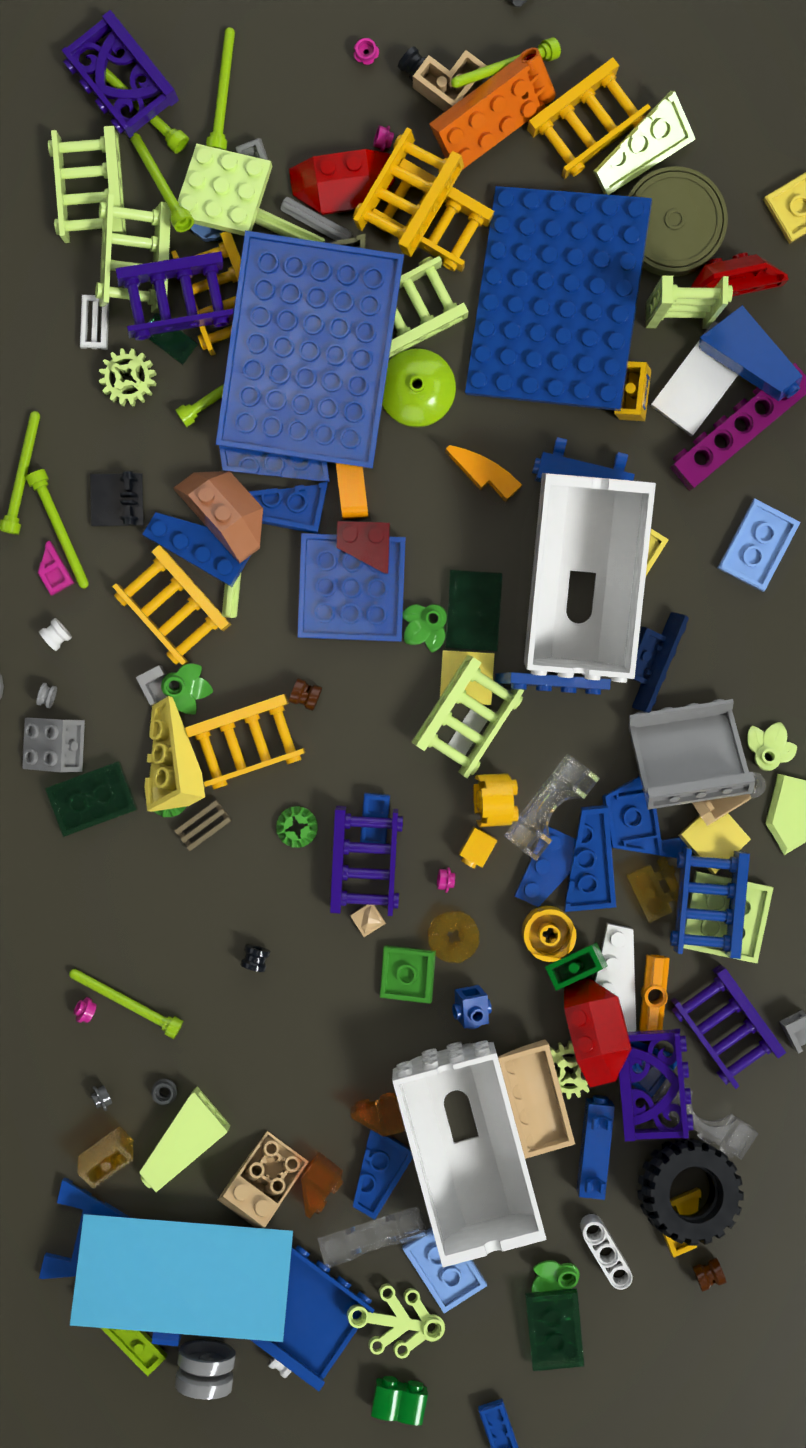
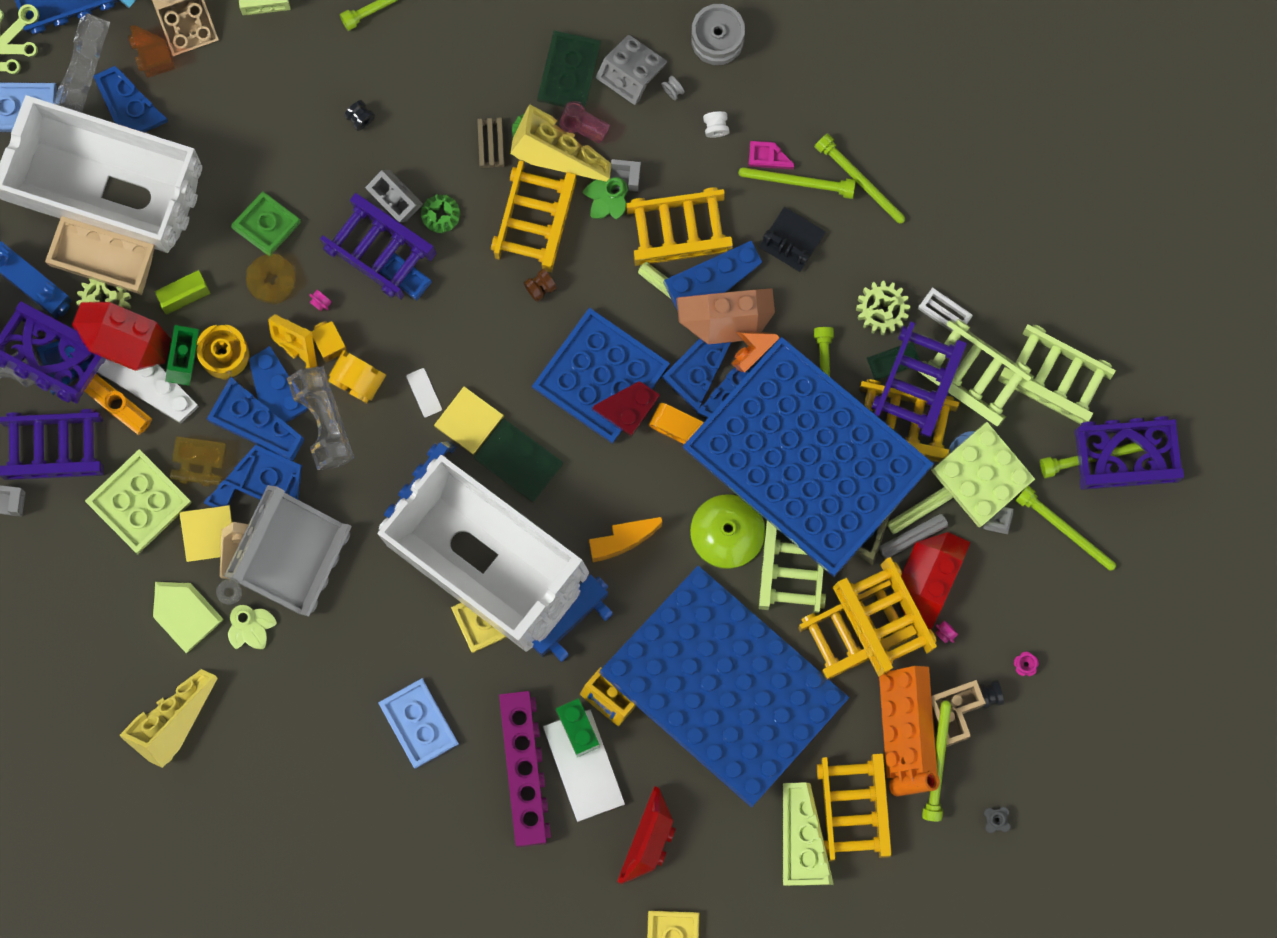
camera: 125 degrees right, 10 degrees down
(133, 759) = (583, 122): none -> clear pink piece
(180, 217) = (977, 422): lime piece -> none
(236, 461) = (757, 344): none -> orange slope
(309, 877) = (394, 195): none -> light grey brick
(367, 919) = (330, 221): tan tile -> none
(379, 1115) = (173, 126): clear orange slope -> none
(422, 629) = (530, 411): bright green plate -> none
(457, 694) = (451, 378): yellowish green fence -> none
(471, 1007) = (206, 254): blue brick -> none
(497, 878) = (294, 339): none -> yellow wing
(517, 1006) = (182, 292): none -> lime panel
(654, 659) = (385, 575): dark blue bracket -> none
(678, 399) = (577, 727): none -> green brick
(684, 221) = (721, 828): olive brick -> none
(687, 302) = (663, 758): yellowish green fence -> none
(732, 917) = (156, 515): blue fence -> none
(752, 354) = (580, 808): blue slope -> none

